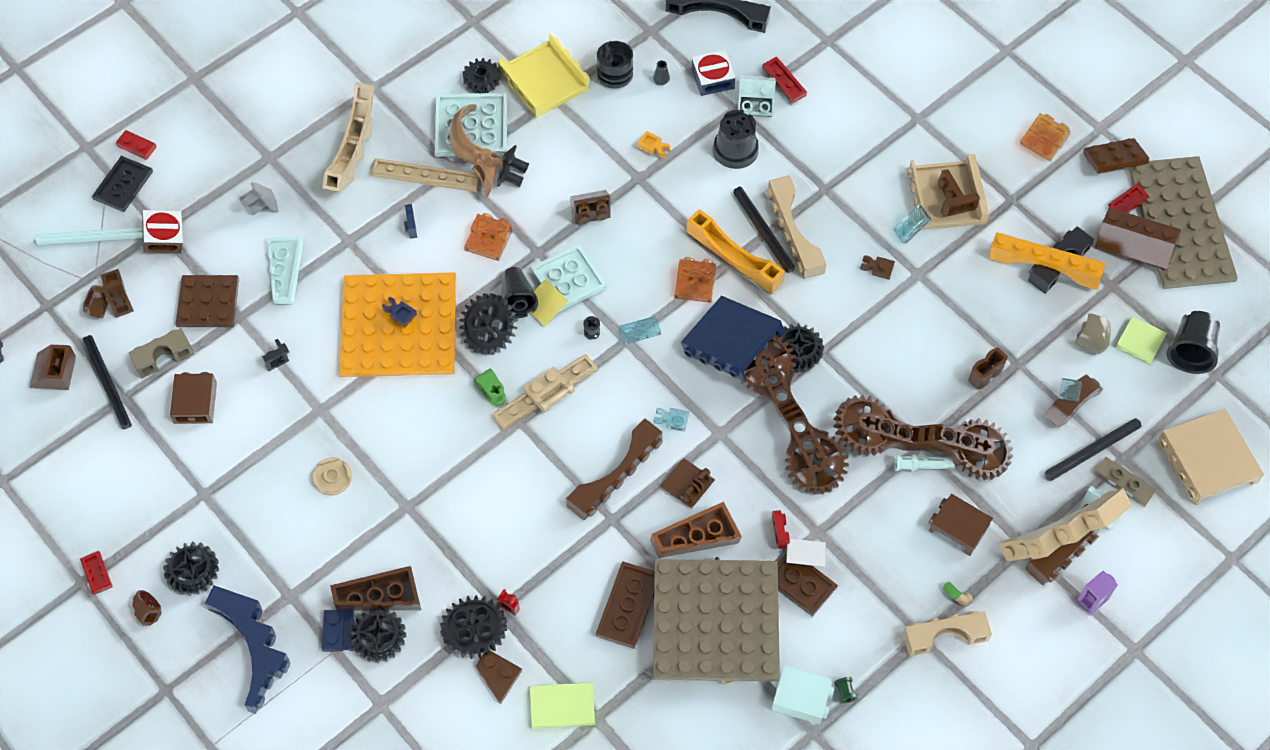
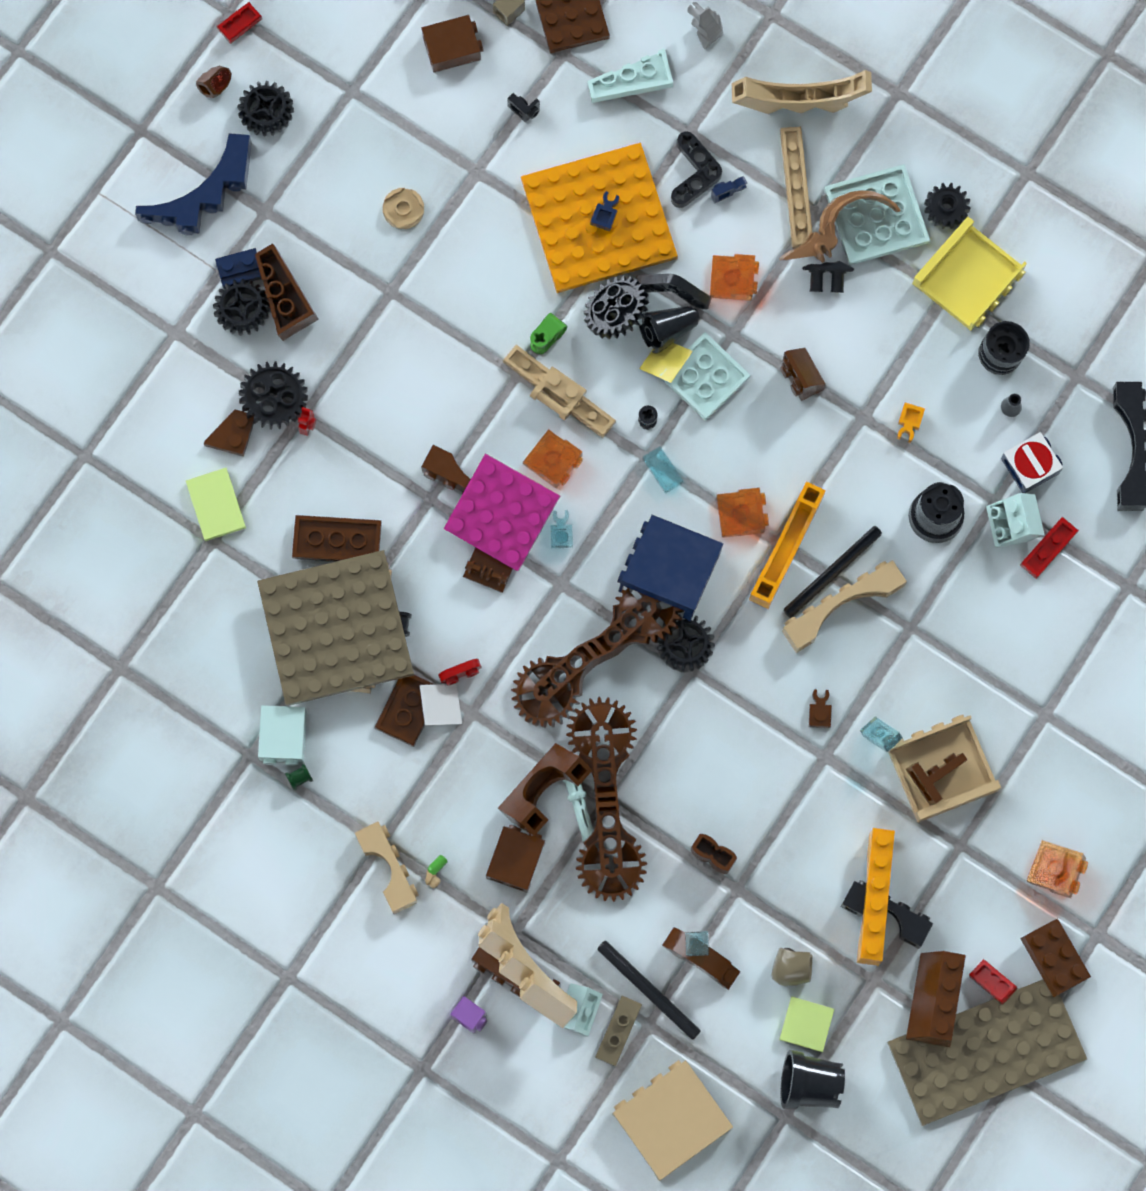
camera: 75 degrees right, 15 degrees up
(389, 238) = (702, 173): none -> black beam
(486, 269) = (678, 286): none -> black beam
(606, 409) = (553, 459): none -> clear orange plate
(646, 456) = (502, 512): none -> dark pink plate
(698, 532) = (436, 595): dark orange wedge -> none
(884, 470) = (554, 766): none -> reddish brown arch

